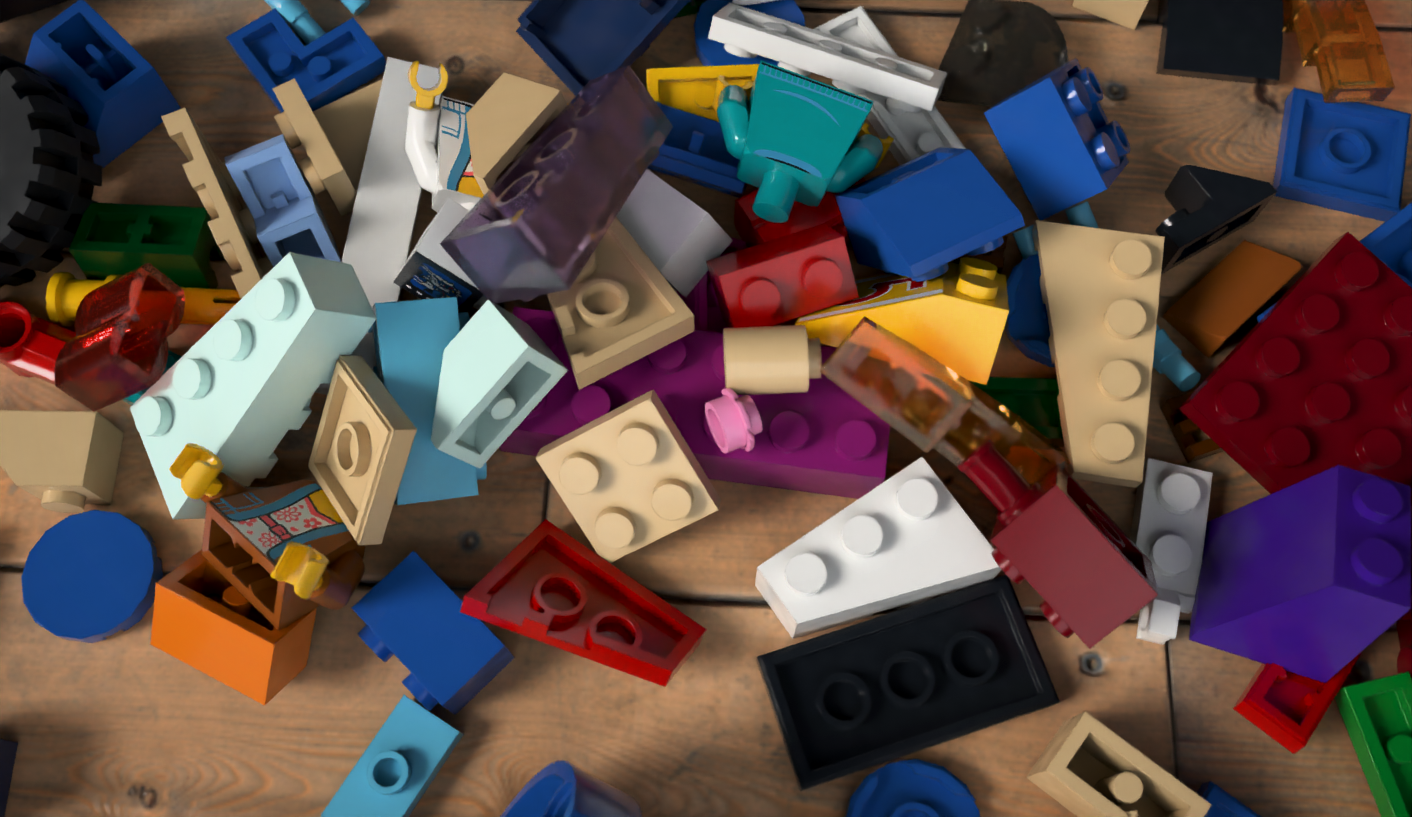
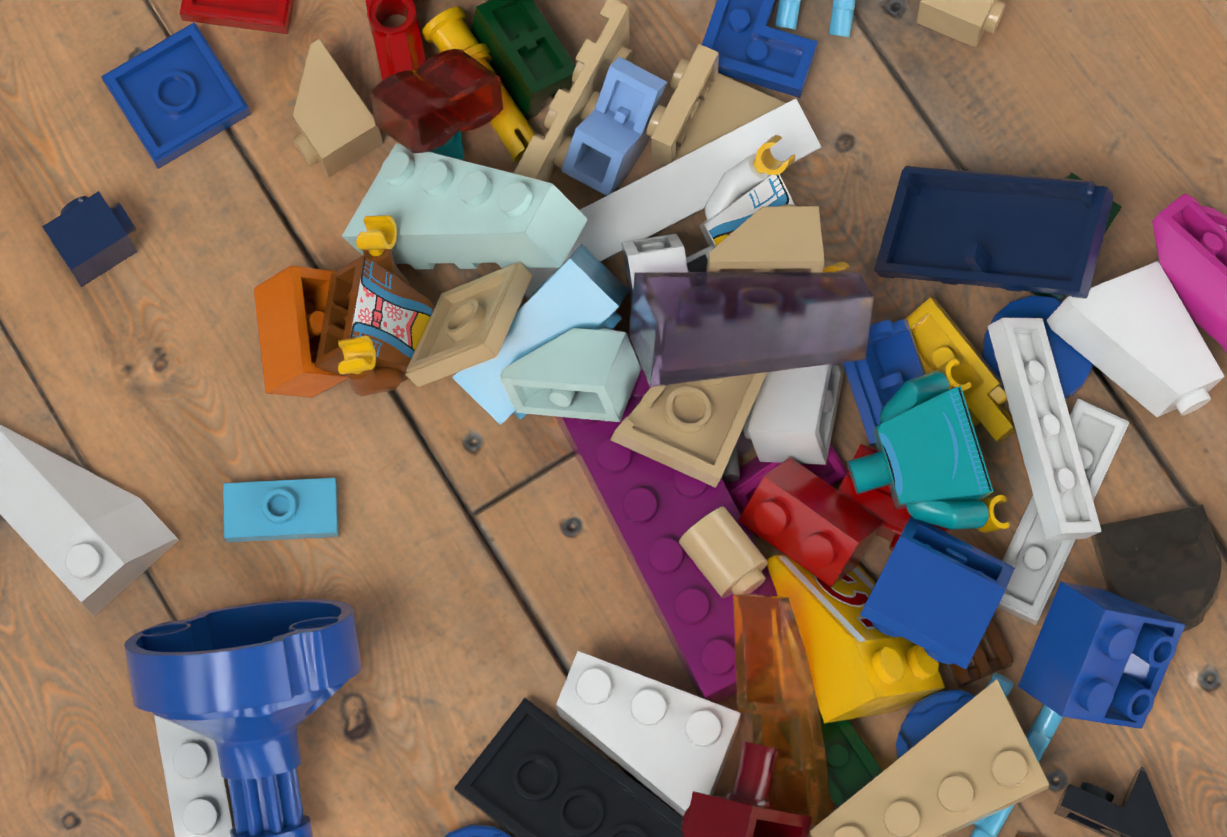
camera: 60 degrees right, 5 degrees up
(91, 576) = (272, 208): blue tile -> none
(422, 625) = (386, 466): blue brick -> none
(583, 605) = (476, 553): red wing -> none
(629, 477) = (582, 519): tan plate -> none
(733, 421) = (663, 561): bright pink plate -> none

